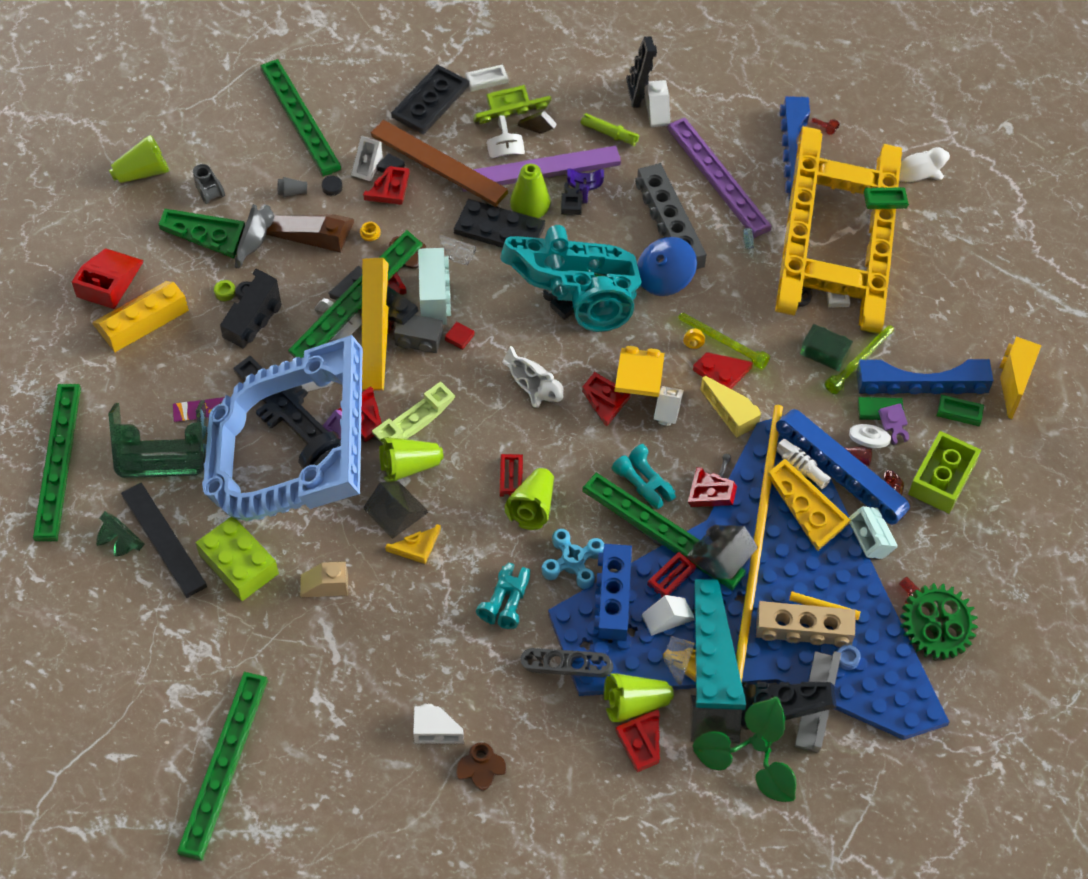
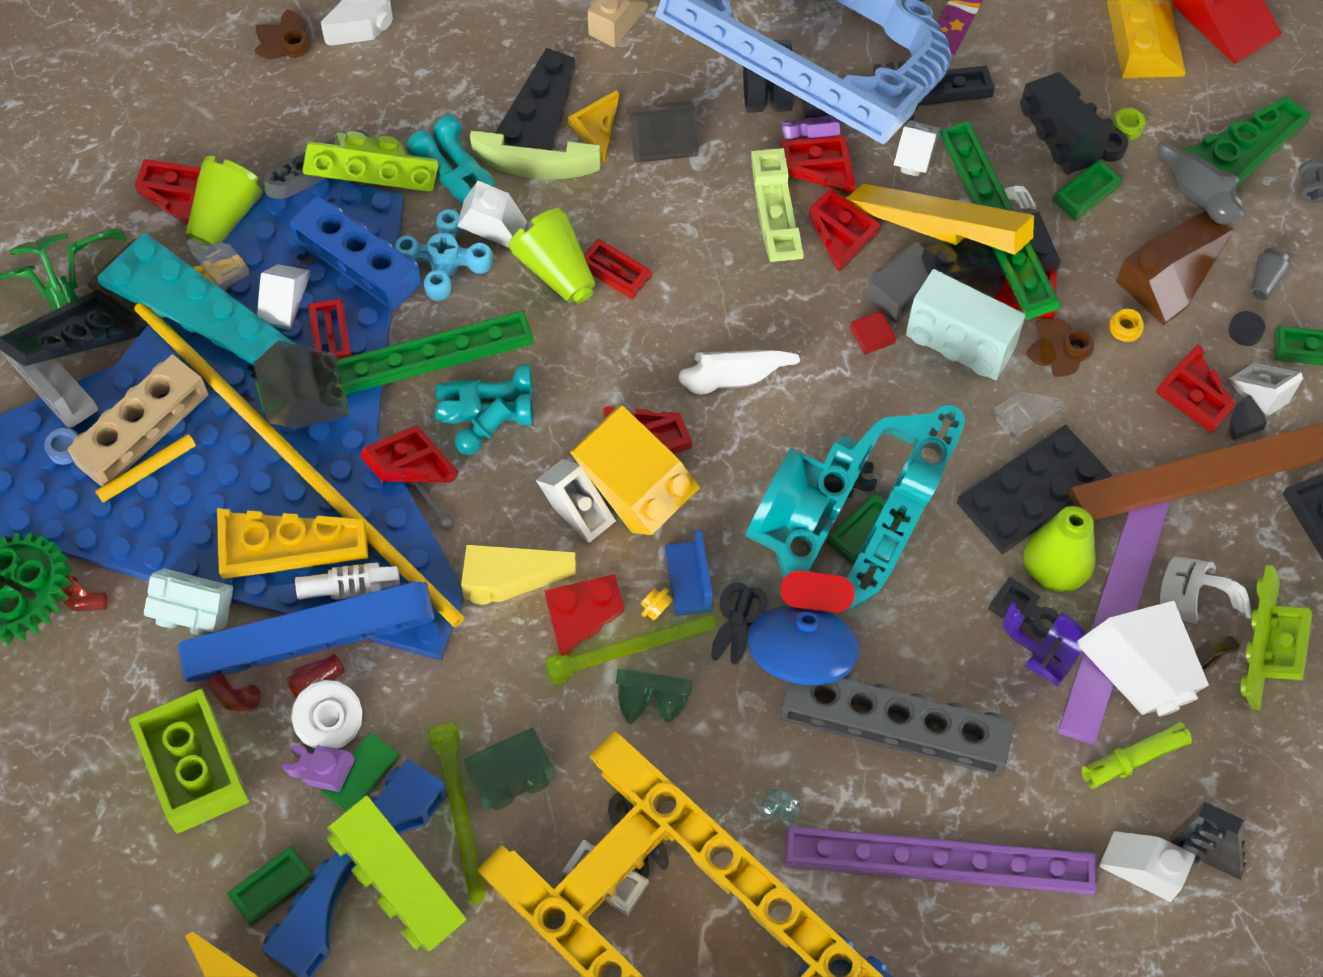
camera: 125 degrees right, 5 degrees up
(293, 288) = (1087, 190): none -> green tile
(403, 380) = (842, 227): none -> red wing
(407, 457) = (716, 160): lime cone -> none
(433, 581) = (540, 104): none -> black wing
(459, 535) = (532, 163): none -> yellowish green slope
(534, 544) = (491, 214): none -> white slope
(542, 632) = (369, 161): none -> lime bracket
(564, 133) = (1148, 658): none -> white slope
(640, 266) = (817, 591): none -> red tile
(666, 333) = (689, 576): none -> blue panel
(675, 472) = (470, 439): none -> teal pin
(676, 304) = (736, 628): none -> black piece
(735, 317) = (636, 689): none -> clear green tile
(917, 350) = (396, 874): none -> lime brick

